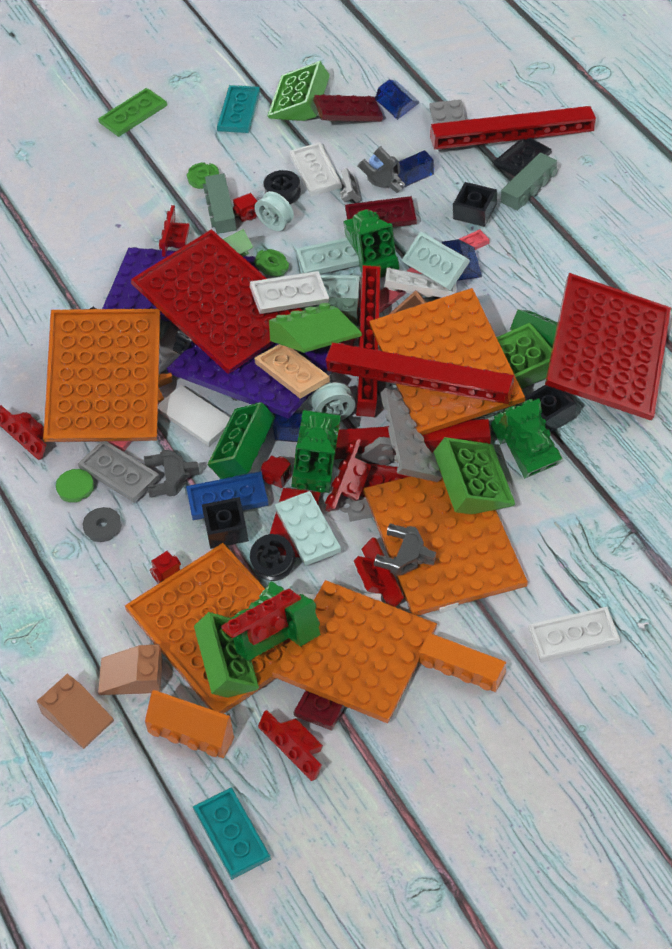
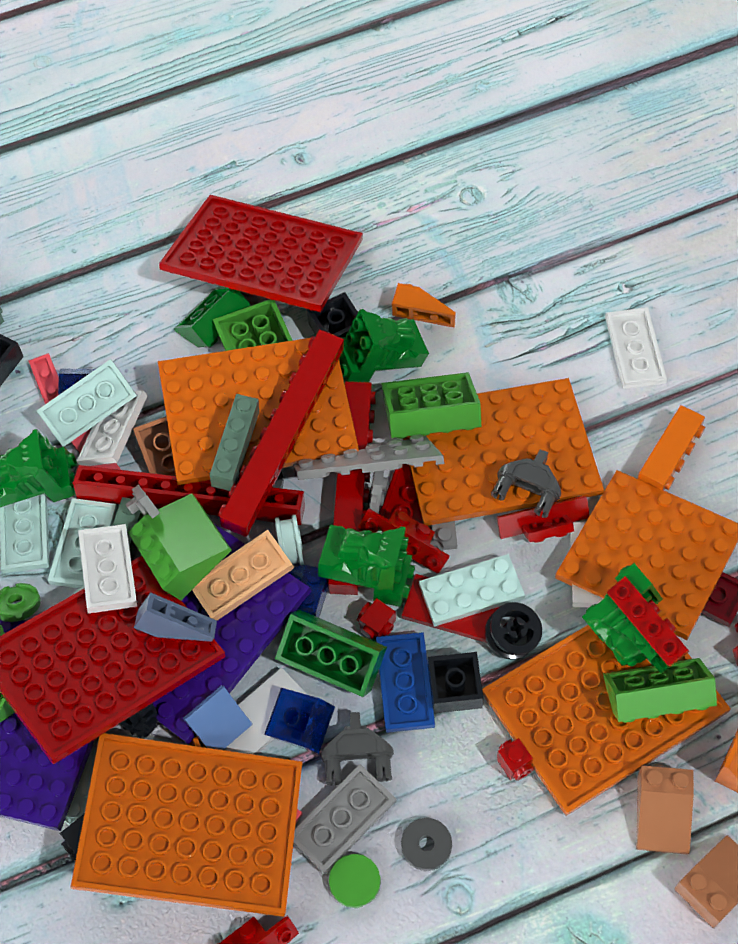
camera: 85 degrees left, 10 degrees up
(182, 382) = (218, 720): none -> medium blue tile
(188, 433) = (300, 720): none -> clear blue slope
(246, 332) = (170, 620): none -> sand blue slope
(346, 303) = (142, 503): none -> light grey hinge
(403, 341) = (234, 442): none -> sand green brick
(584, 465) = (418, 305): none -> orange slope

